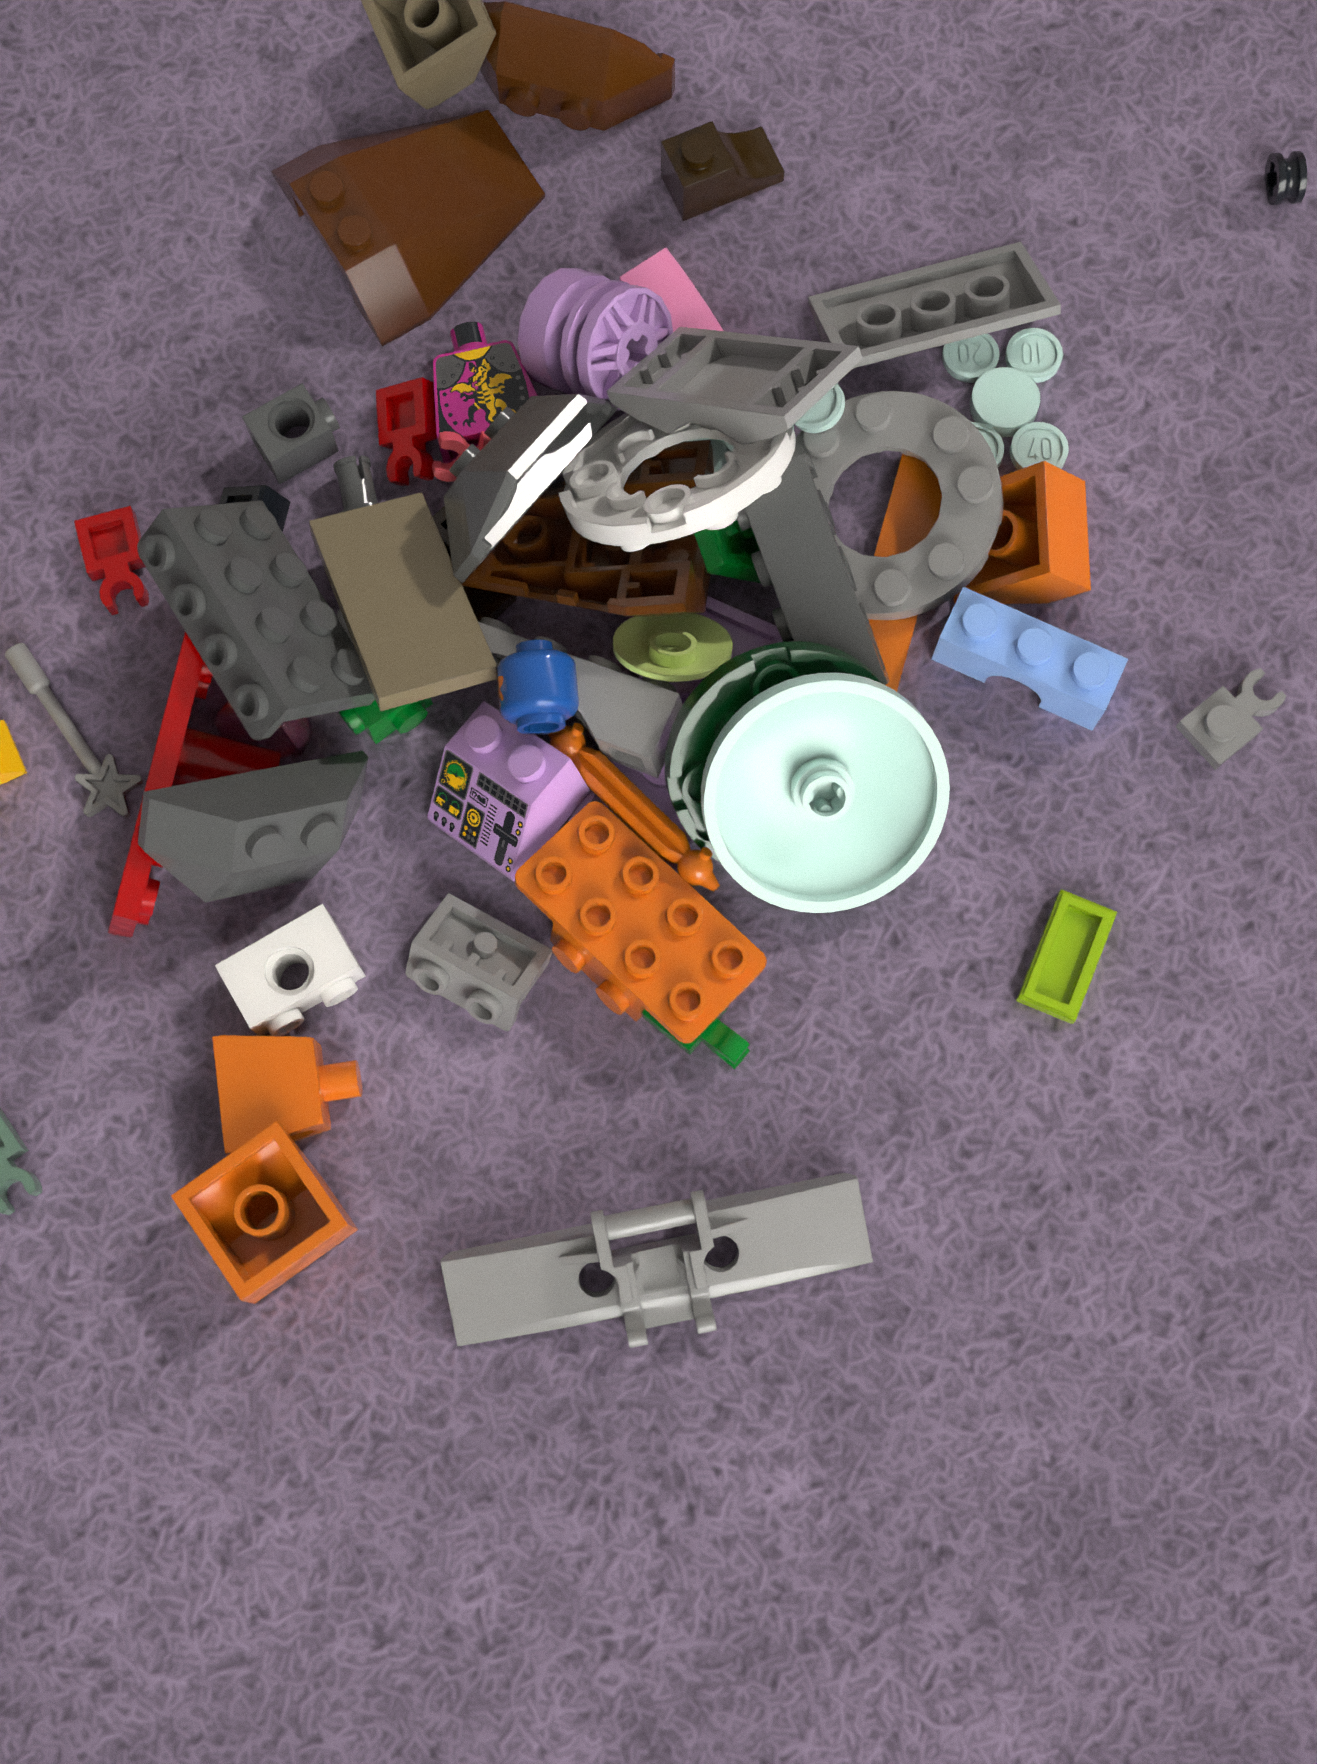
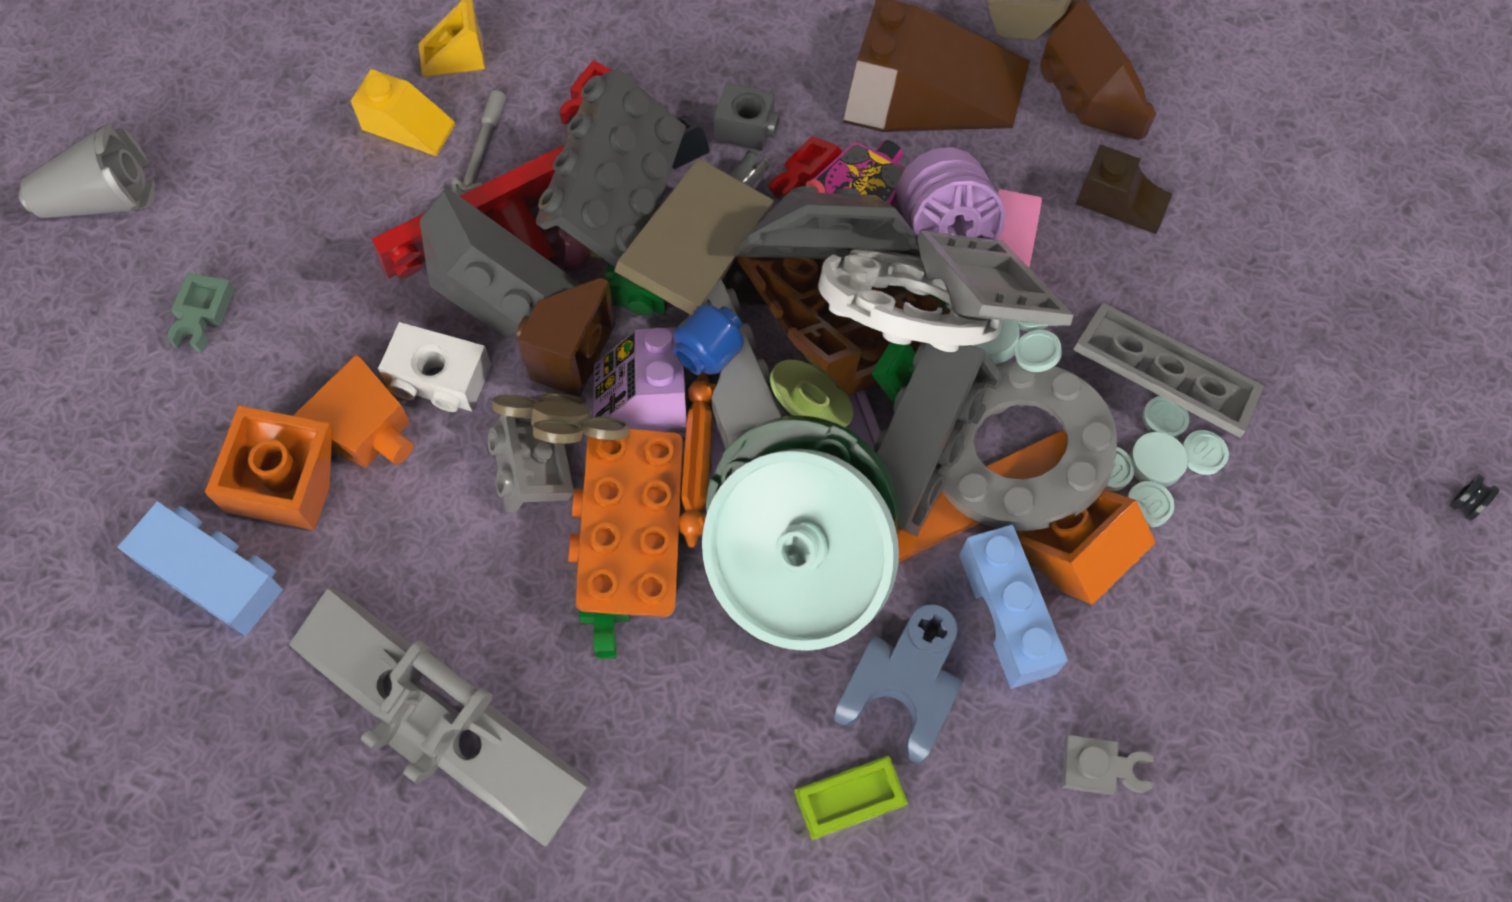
camera: 45 degrees right, 10 degrees down
(302, 1366) = (202, 566): none -> light blue brick
(387, 820) = (567, 336): none -> reddish brown slope
(477, 895) = (561, 417): none -> dark tan piece
(1008, 802) = (909, 674): none -> sand blue piece

